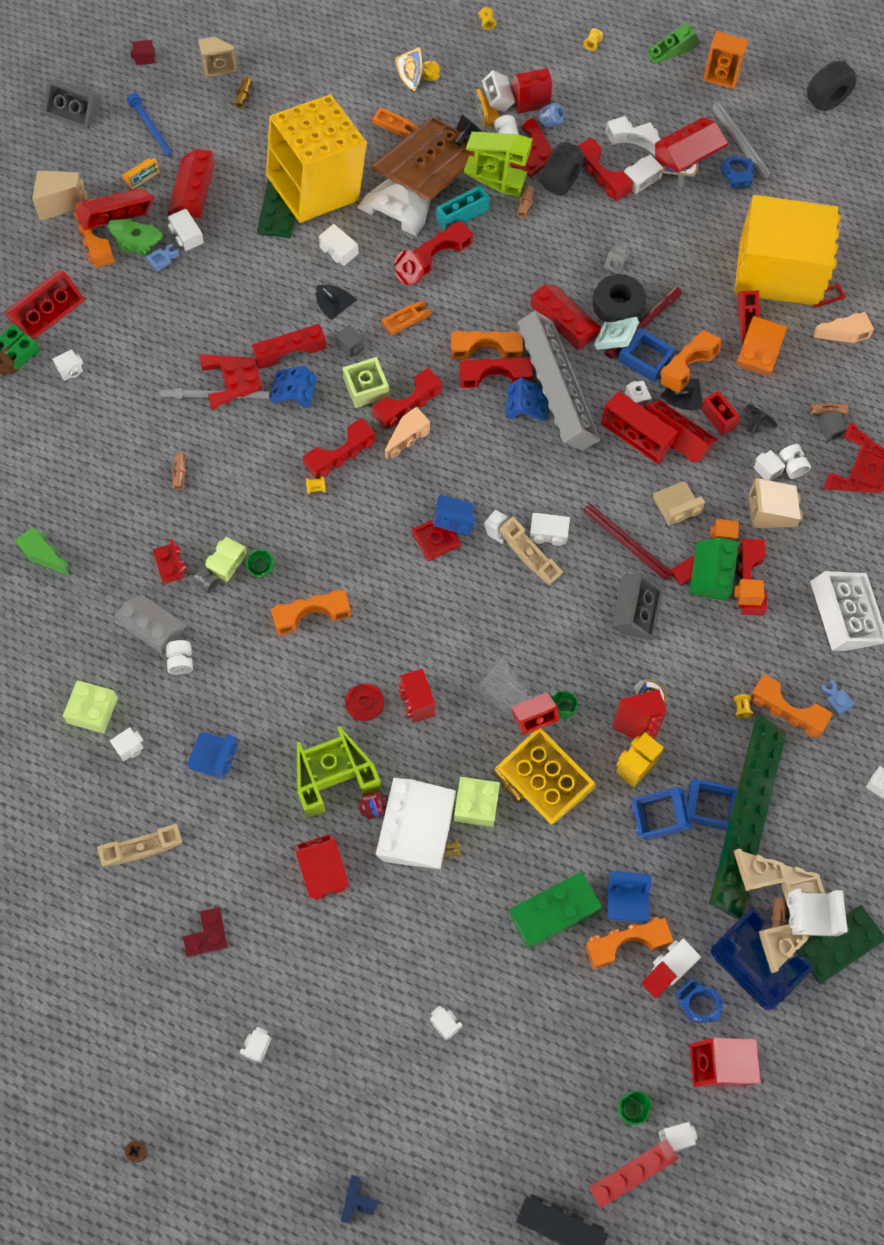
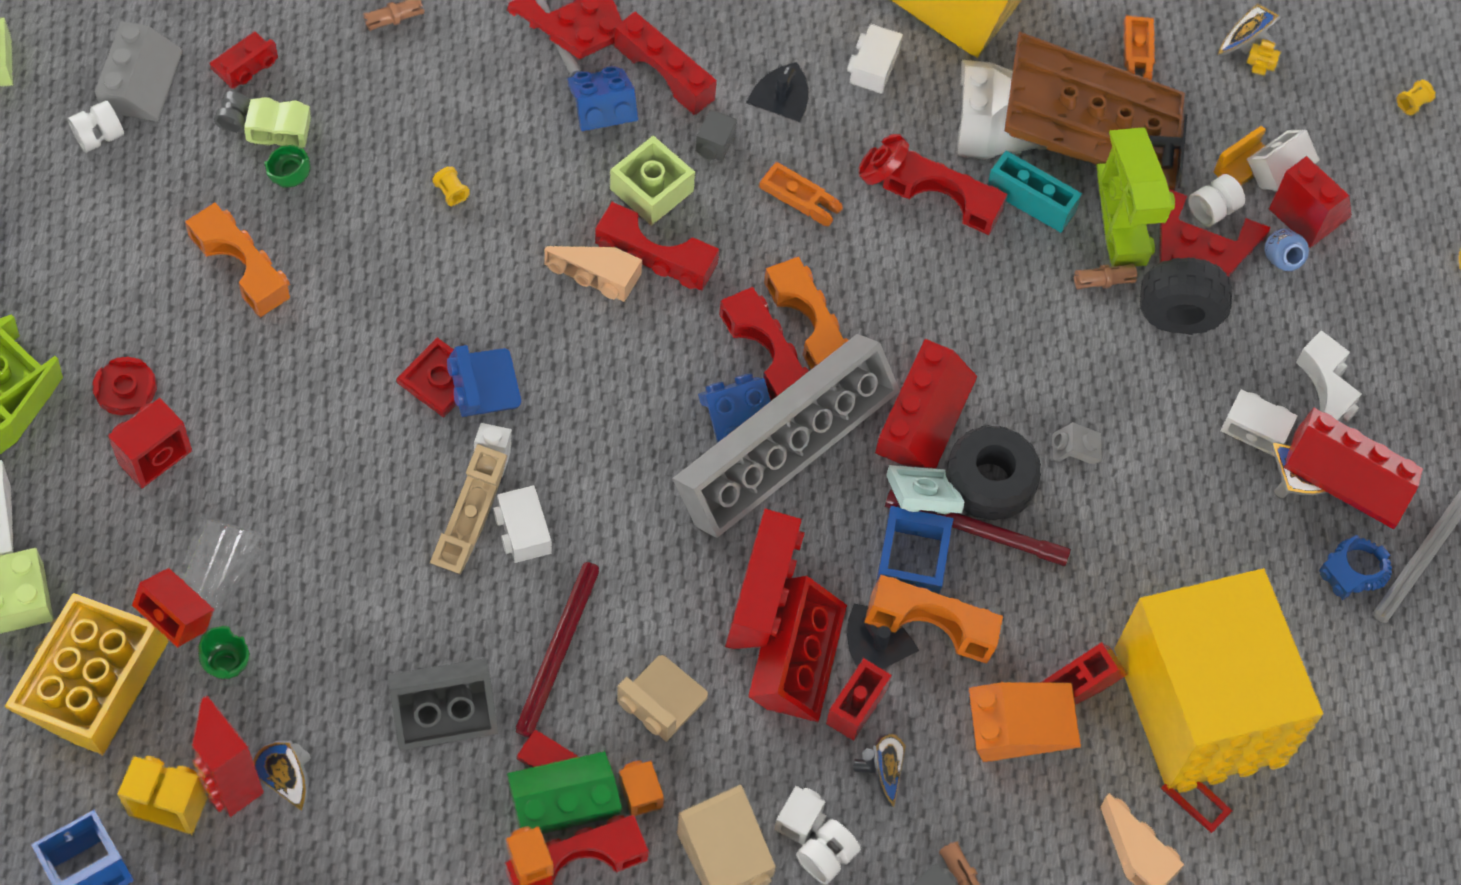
camera: 60 degrees right, 5 degrees down
(321, 462) = (555, 208): red arch -> none
(614, 183) = (1246, 336): red arch -> none
(638, 393) = (831, 564): white brick -> none

